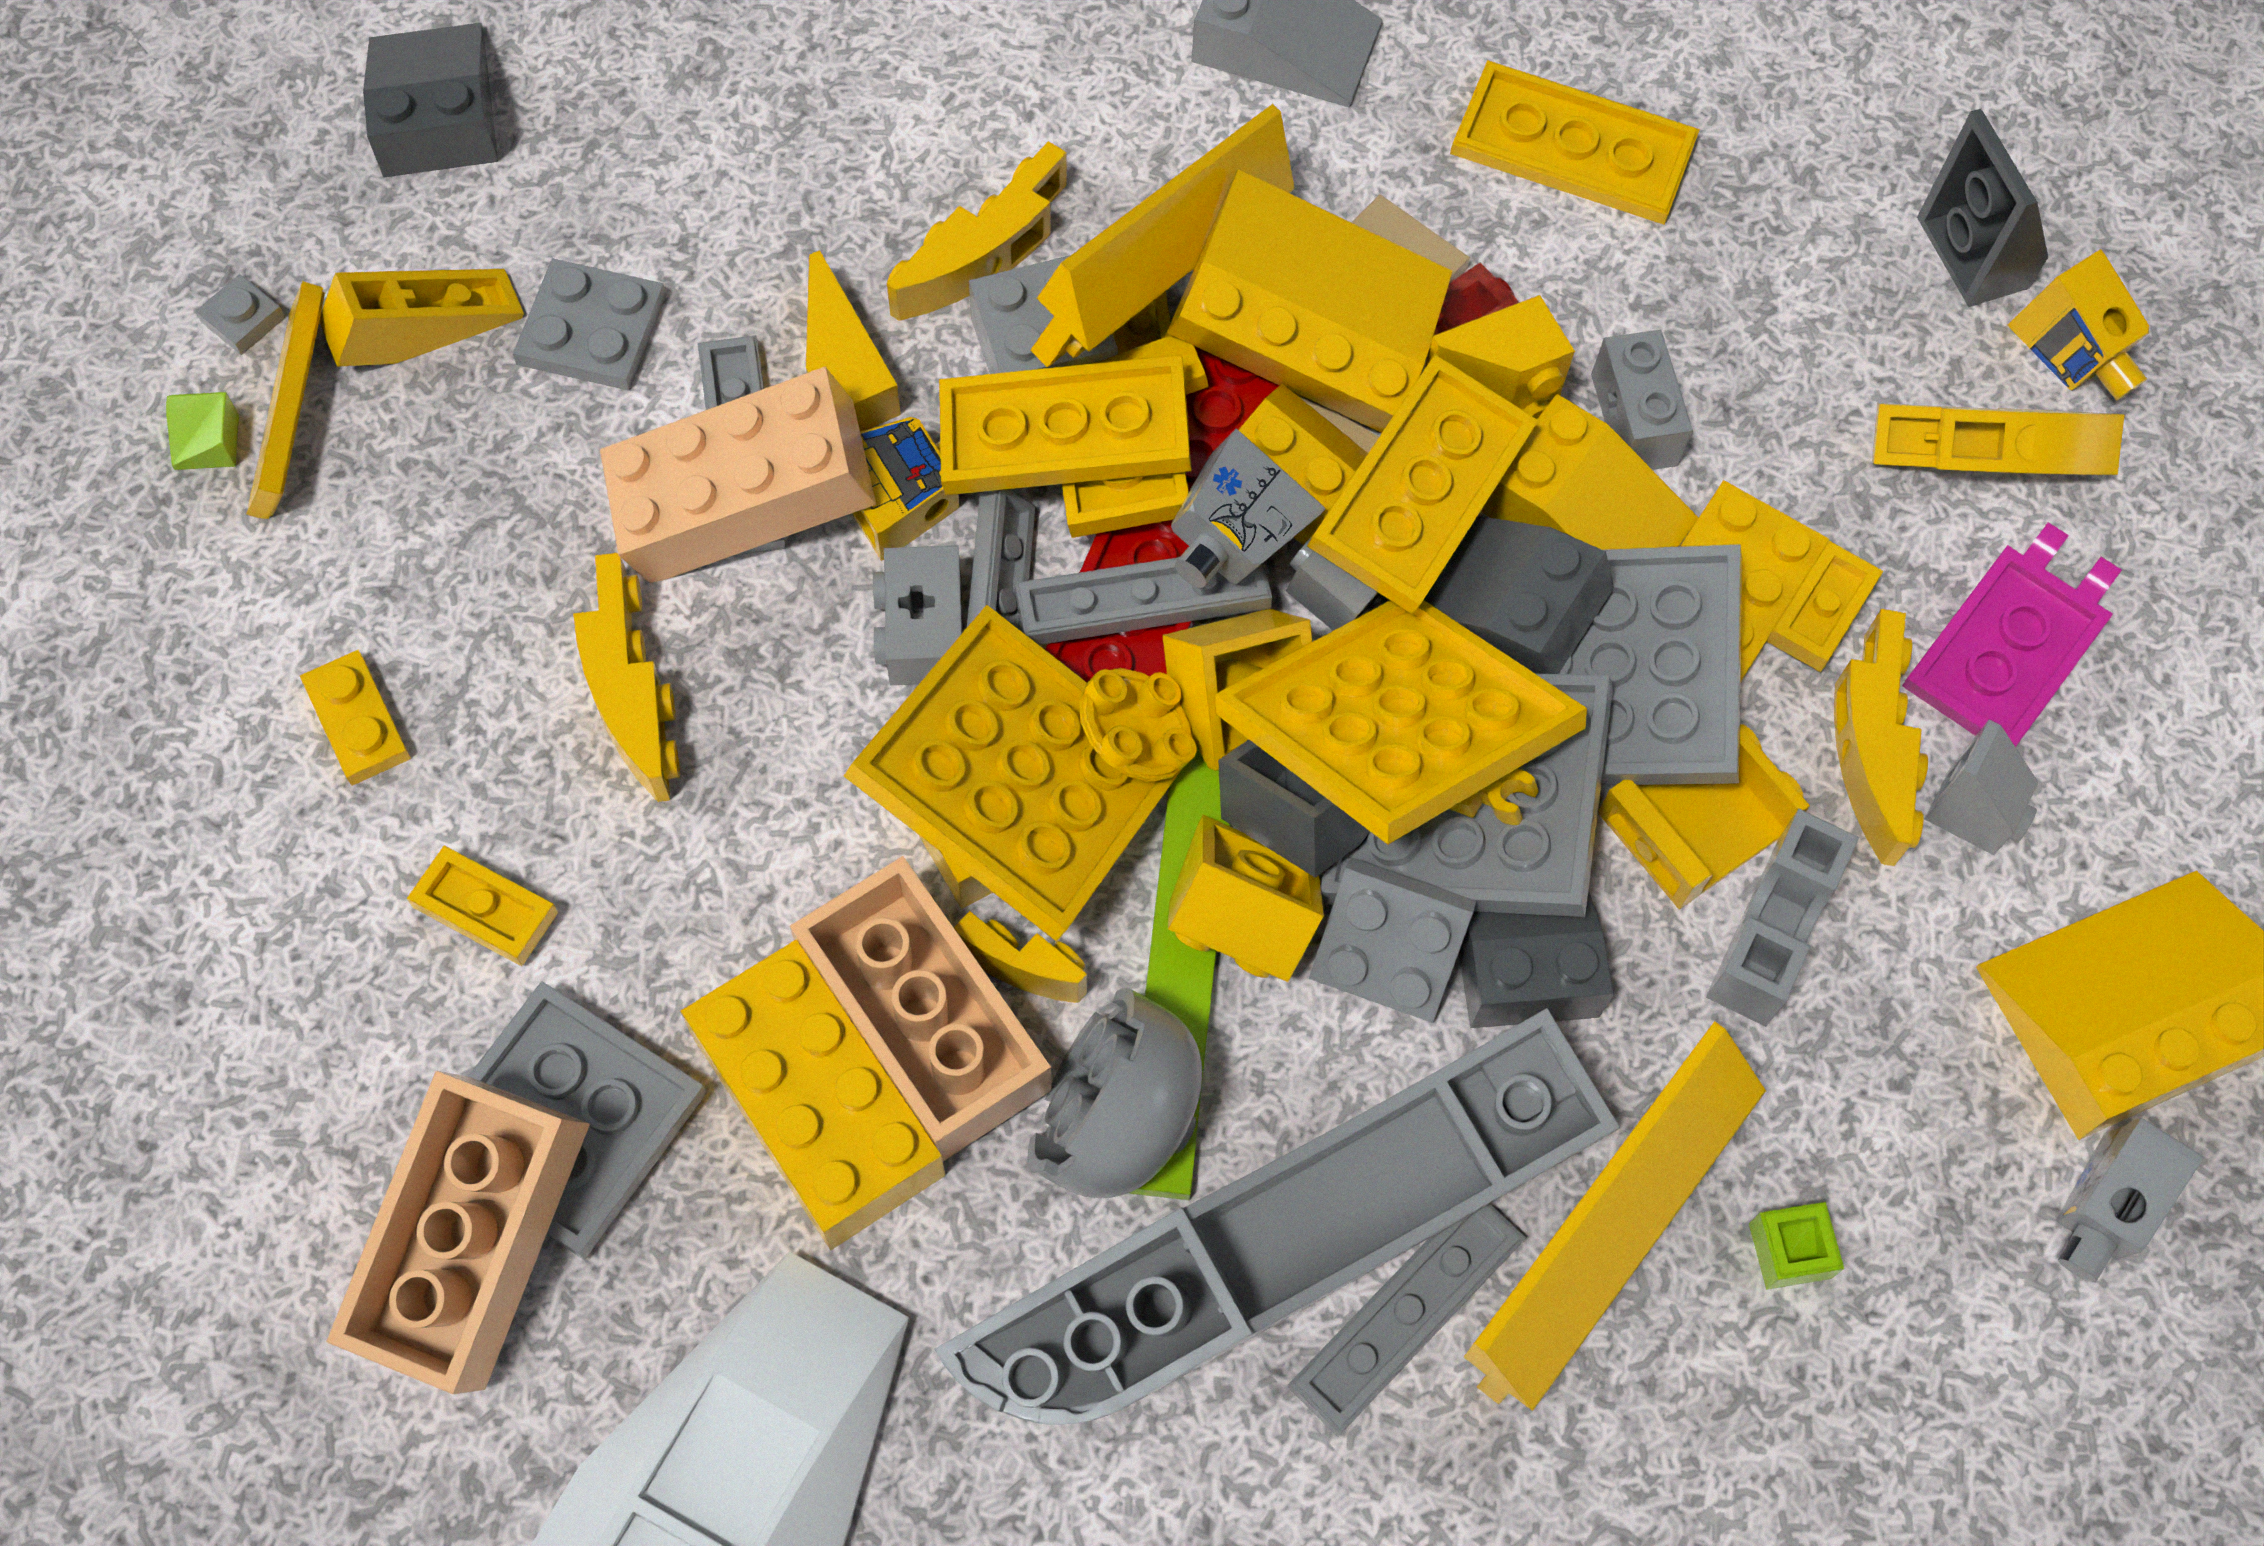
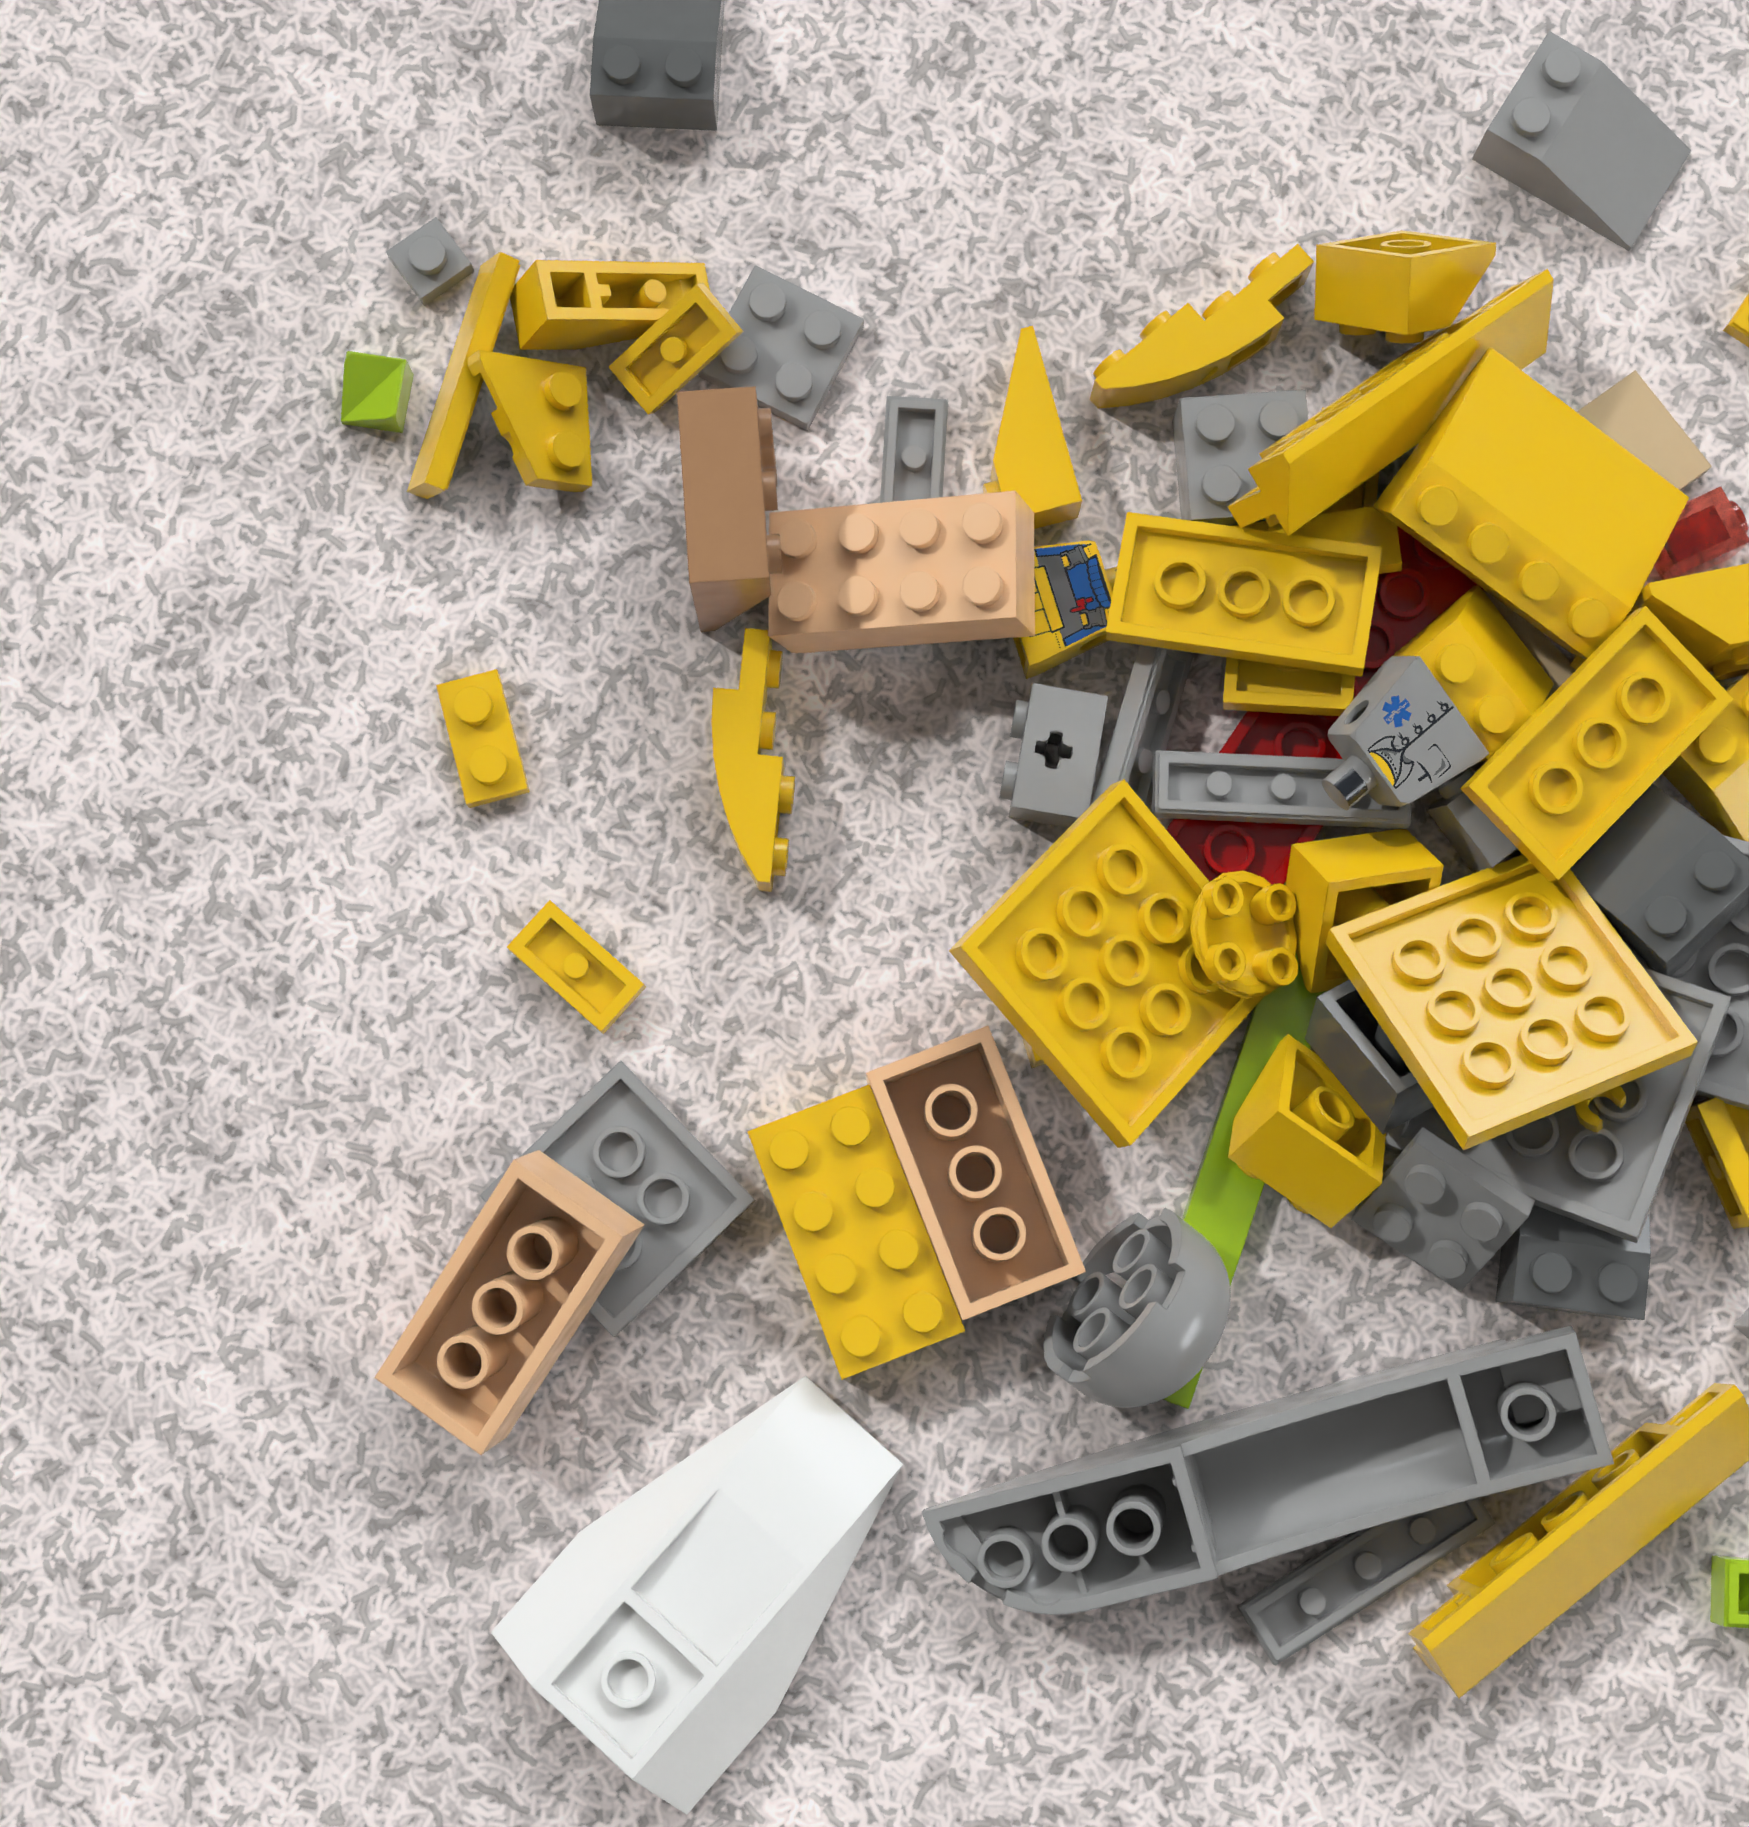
camera: 15 degrees right, 15 degrees up
(367, 417) = (541, 416): none -> yellow wing
(486, 336) = (675, 348): none -> yellow plate
(552, 435) = (726, 490): none -> medium nougat slope
(1037, 968) = (1093, 1154): yellow slope -> none
(1140, 152) = (1397, 282): none -> yellow slope

